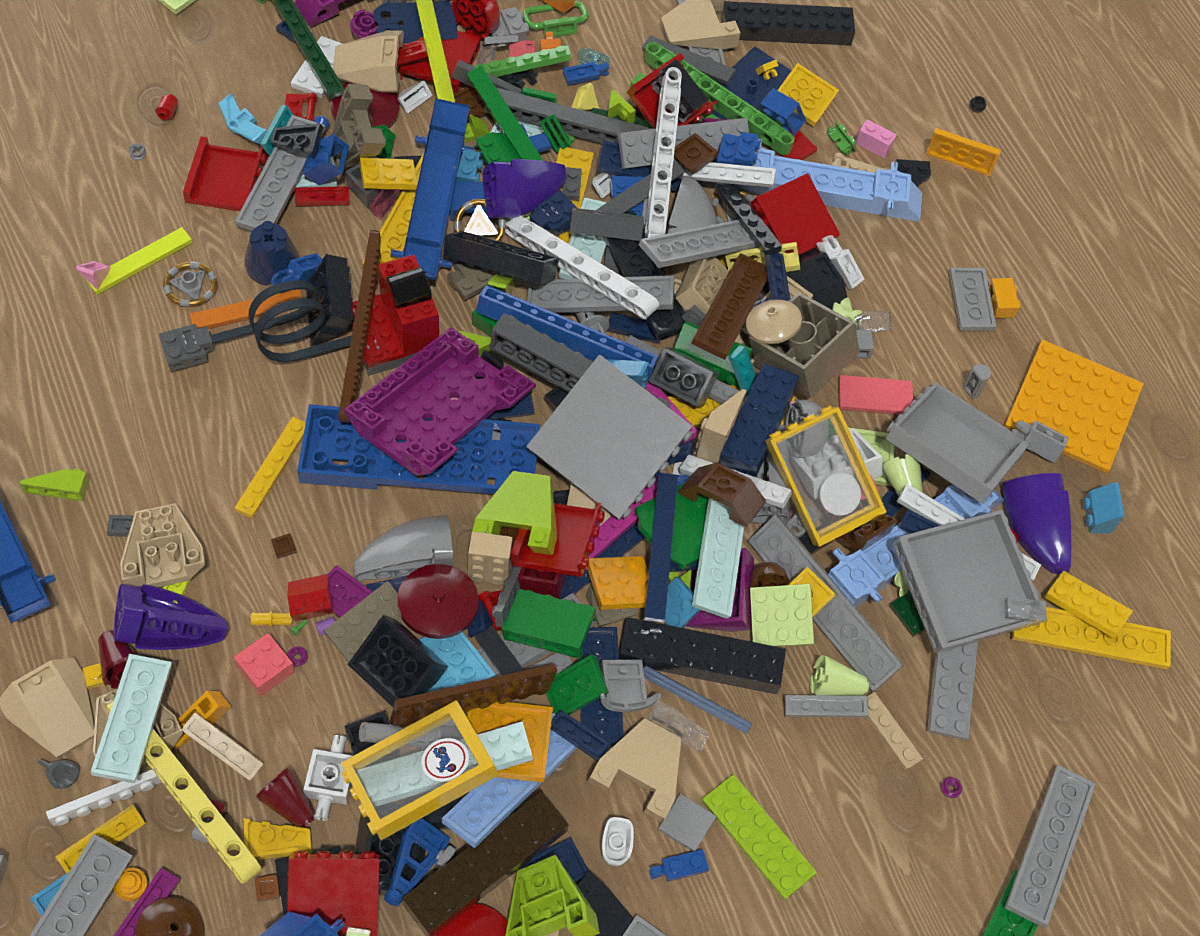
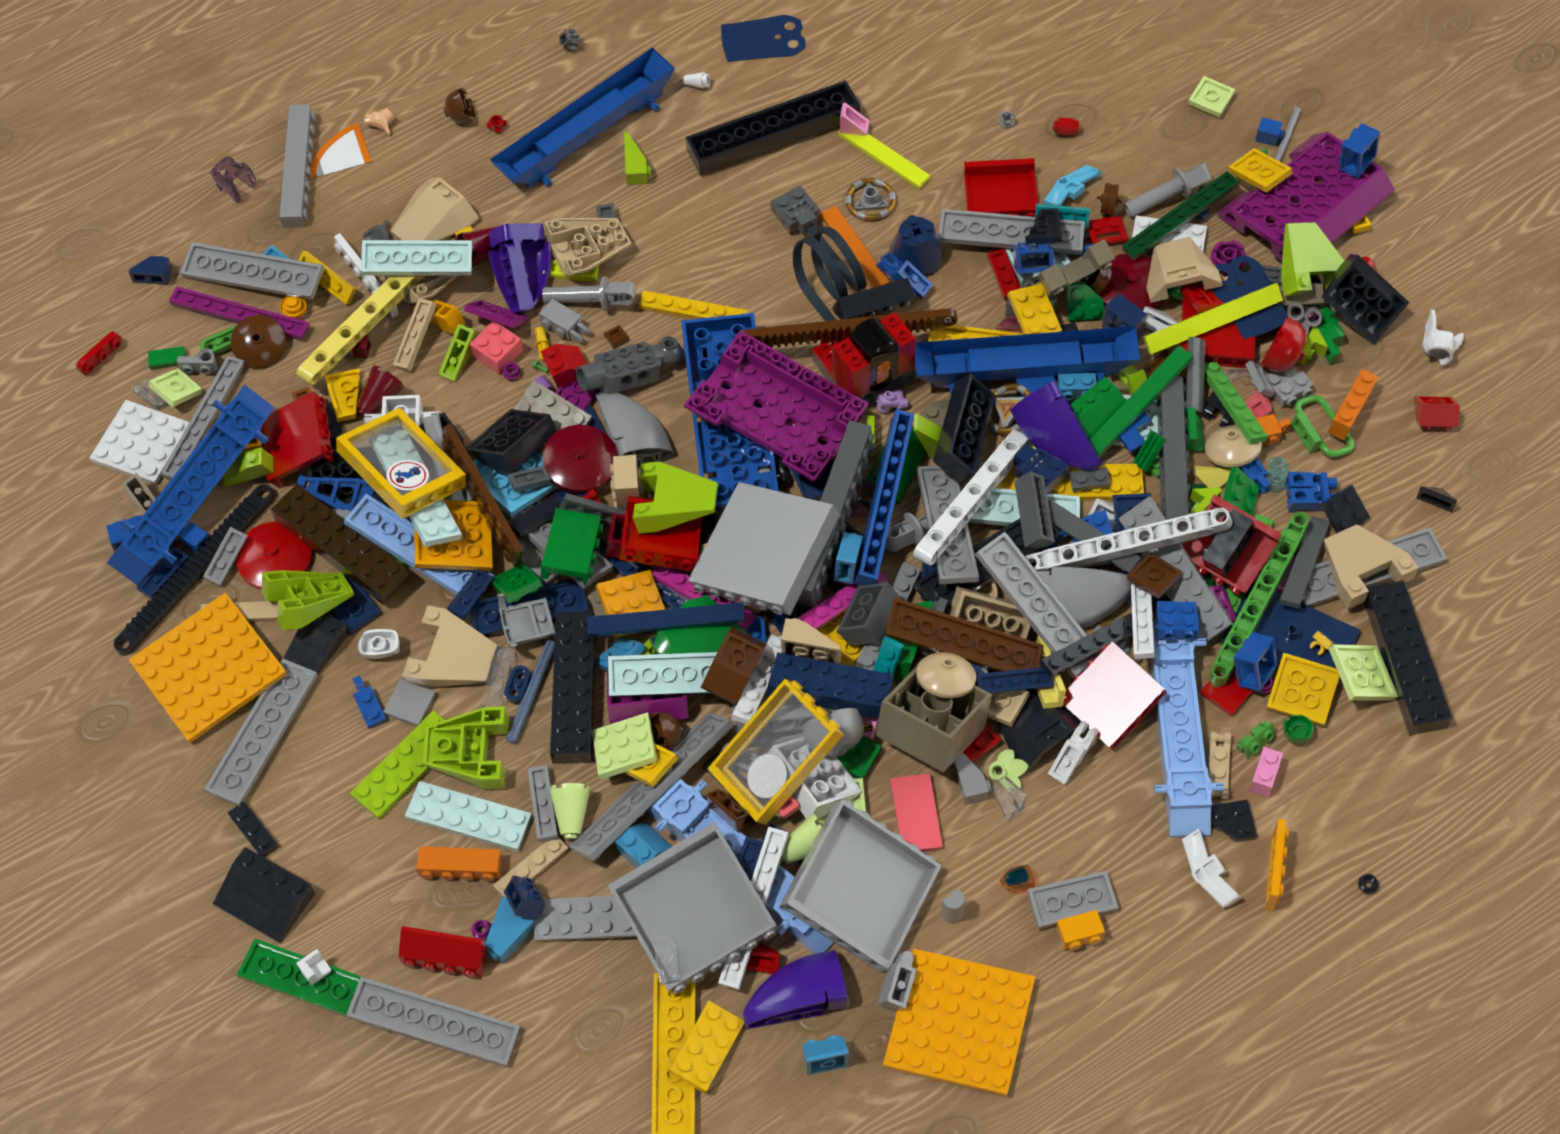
camera: 90 degrees right, 0 degrees up
(70, 347) = (769, 128): none -> black brick
(221, 656) = (496, 313): none -> magenta tile
(232, 539) = (607, 293): none -> light grey piece
(251, 591) = (563, 321): none -> light grey hinge
(257, 704) = (458, 352): none -> lime slope
(269, 93) = (1109, 199): none -> reddish brown wheel
(273, 36) = (1181, 184): none -> light grey piece
(336, 533) = (628, 366): none -> dark grey brick
(411, 115) = (1123, 313): none -> dark blue brick
(443, 311) = (891, 399): none -> lavender plate
(456, 651) = (529, 479): none -> dark grey plate
(565, 82) = (1230, 448): none -> tan dish
(608, 80) = (1241, 491): none -> green plate
(622, 35) = (1308, 490): none -> blue hips
(645, 21) = (1345, 509): none -> black plate
(689, 708) = (517, 685): none -> dark blue plate
(752, 775) = (461, 746): none -> lime wedge
(801, 51) = (1363, 672): none -> yellowish green plate
(825, 783) = (468, 816): none -> light aqua plate
(840, 108) = (1298, 729): none -> green hair
(881, 797) = (459, 863): none -> orange brick
(888, 620) = (640, 844): none -> dark azure slope
(933, 735) = (524, 897): none -> dark blue brick
(951, 330) = (1018, 879): none -> rock
(956, 200) = (1208, 870): none -> white plate
(958, 761) = (507, 932): none -> dark azure slope
(978, 825) = (442, 952): none -> red slope

